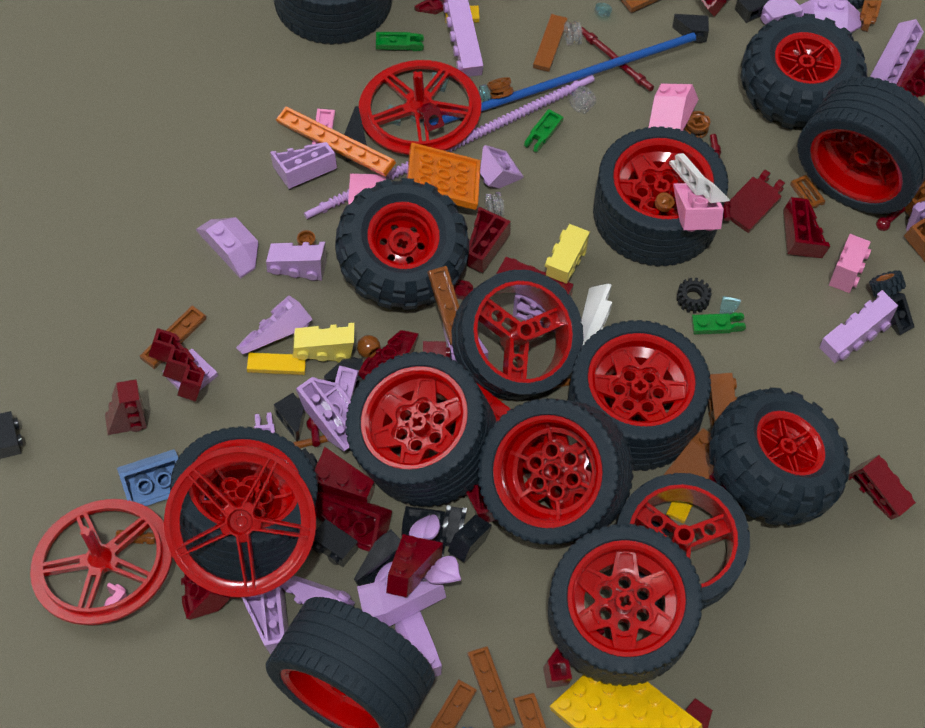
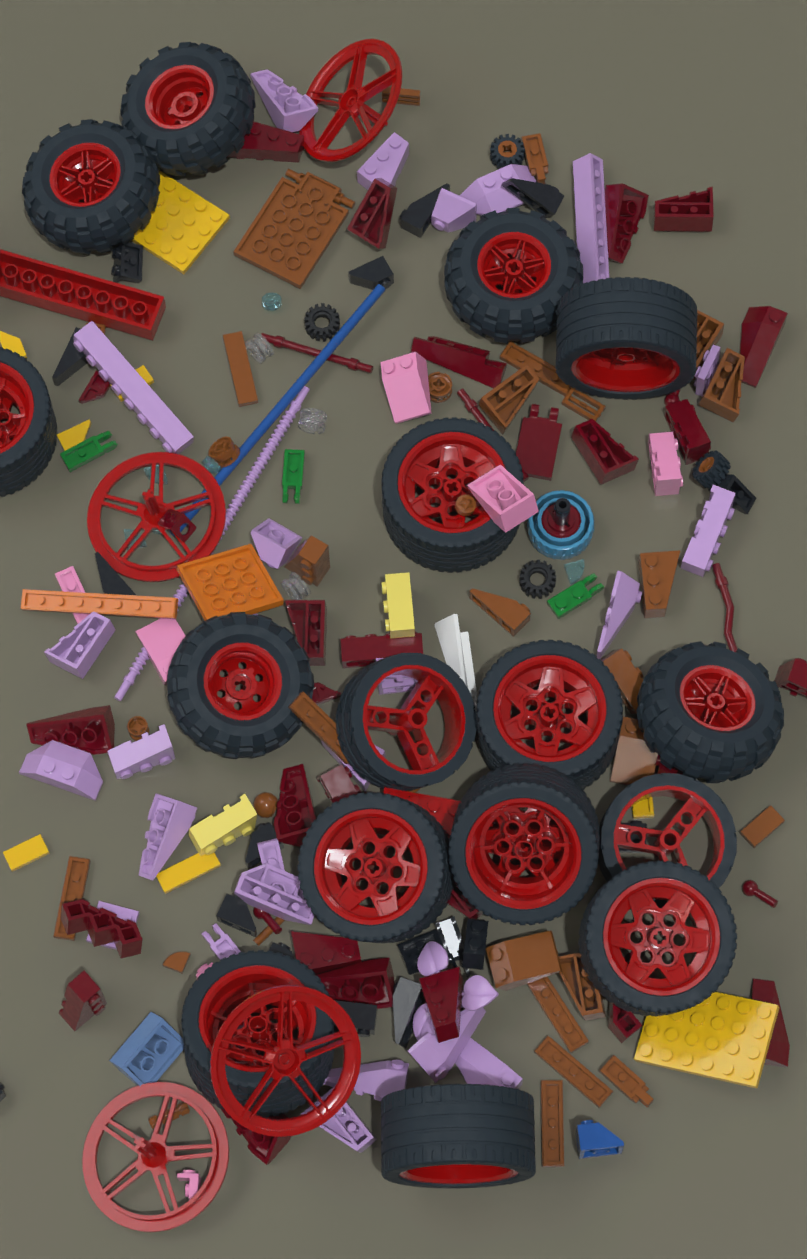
camera: 25 degrees left, 10 degrees up
(161, 286) = (26, 853): none -> yellow tile
(221, 422) = (177, 961): none -> dark orange tile
(263, 222) = (84, 729): none -> dark red wedge
(396, 25) = (74, 435): none -> yellow tile
(501, 571) = (523, 960): none -> dark orange slope
(507, 632) = (558, 1014): none -> dark orange tile
(518, 189) = (310, 561): none -> dark orange wedge
(537, 629) = (581, 989): none -> dark orange wedge
(632, 33) = (316, 313): none -> black tyre
(651, 303) = (503, 610): none -> dark orange slope
(695, 180) = (488, 472): white wedge -> none
(728, 115) = (461, 359): none -> dark red wedge
(736, 264) = (562, 525): none -> dark azure wheel
(736, 623) = (750, 888): none -> dark red bar
(749, 155) = (508, 397): none -> dark orange wedge
(754, 346) = (622, 603): none -> lavender wedge
(774, 579) = (762, 826): none -> dark orange tile
(783, 148) = (547, 375): none -> dark orange tile
(794, 343) = (656, 578): none -> dark orange wedge
(847, 375) = (722, 583): none -> dark red bar
(860, 30) = (538, 196): none -> black slope
(883, 248) = (688, 430): none -> dark red wedge

